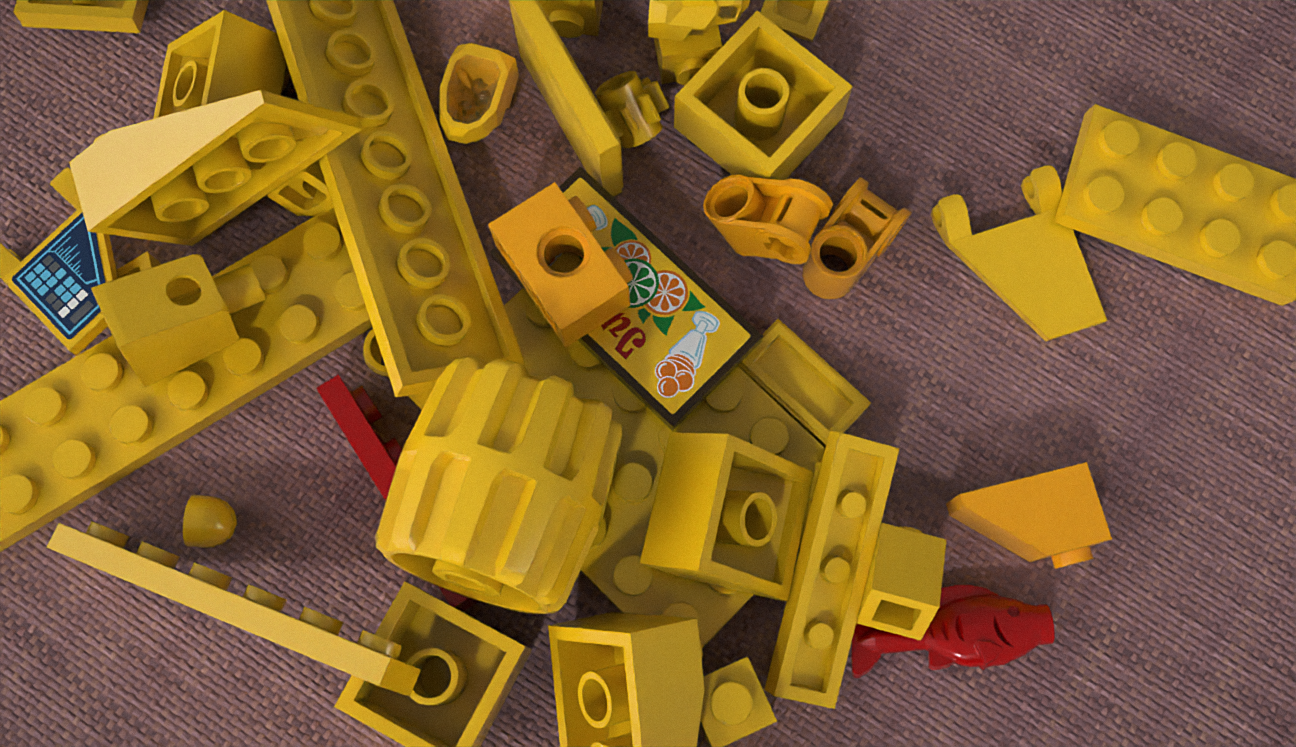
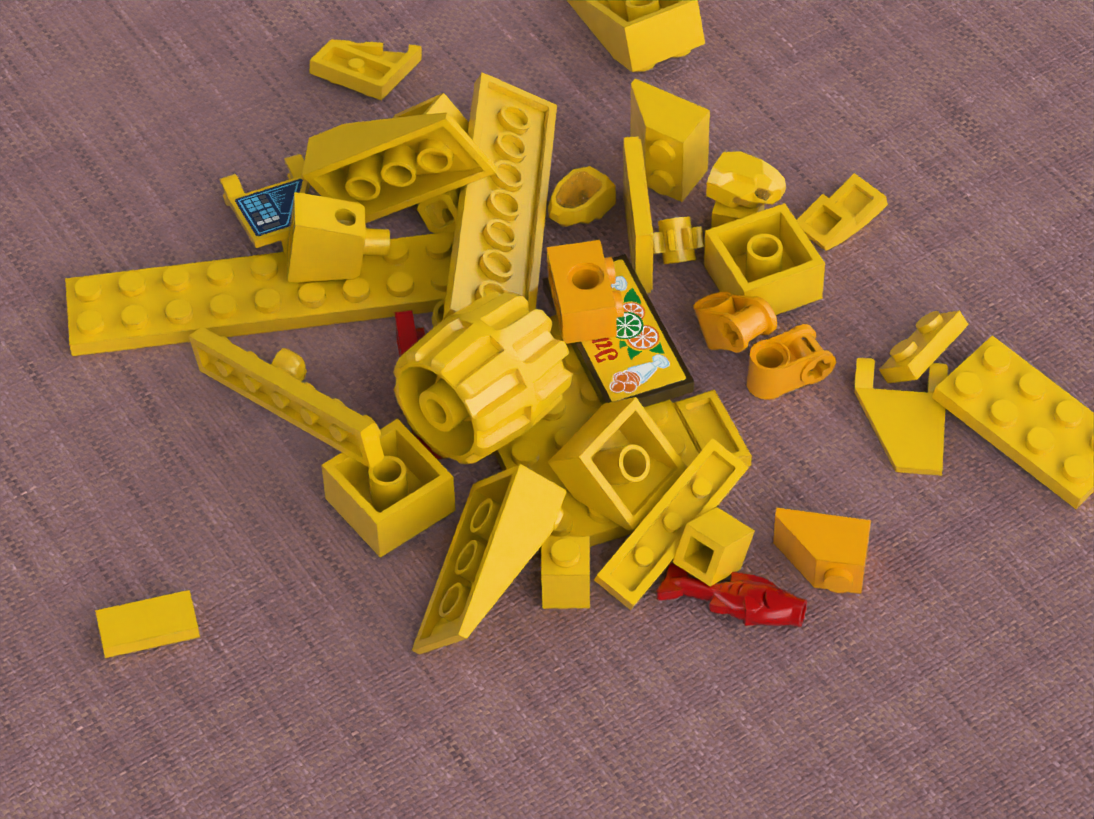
camera: 25 degrees right, 25 degrees down
(1007, 148) = (917, 353): none -> yellow plate

